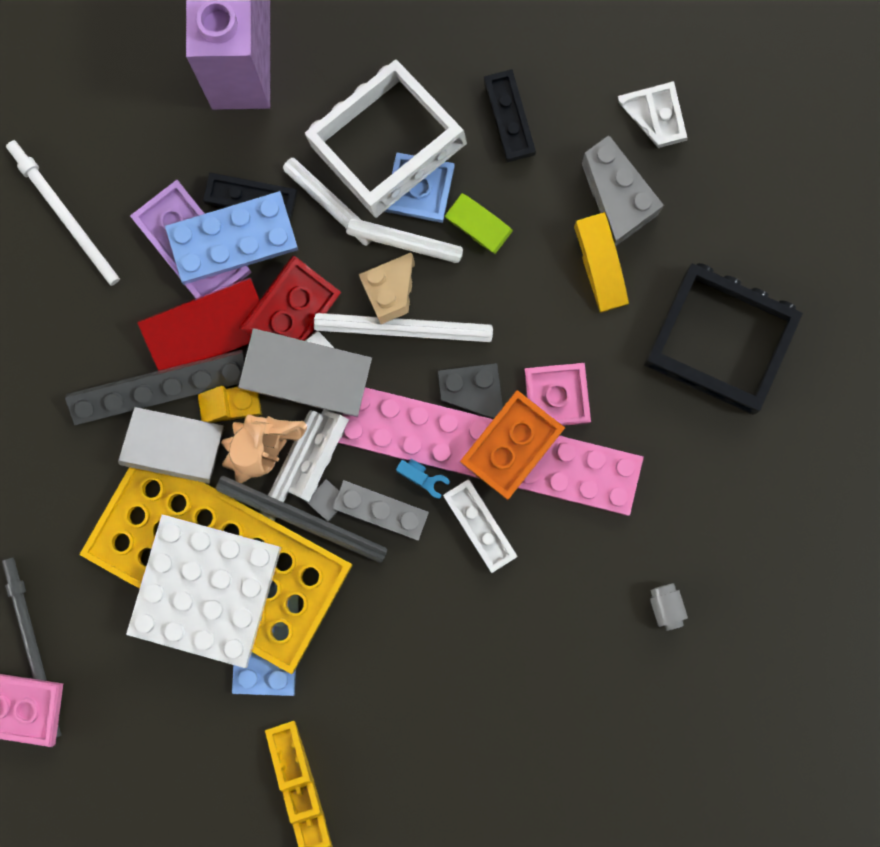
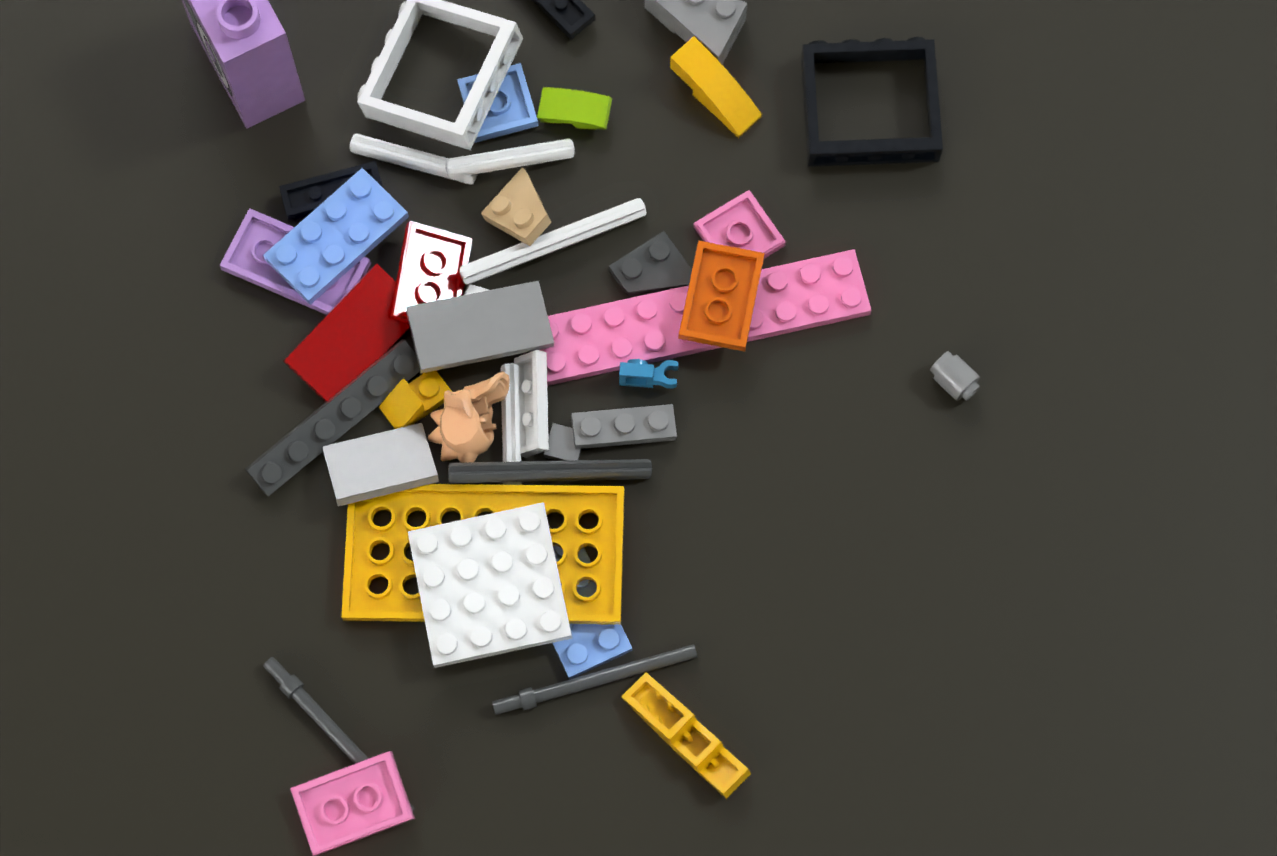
camera: 30 degrees left, 10 degrees down
(29, 168) = (89, 271): white bar -> none
(192, 693) = (529, 698): none -> dark grey bar
(480, 526) = (730, 392): white plate -> none

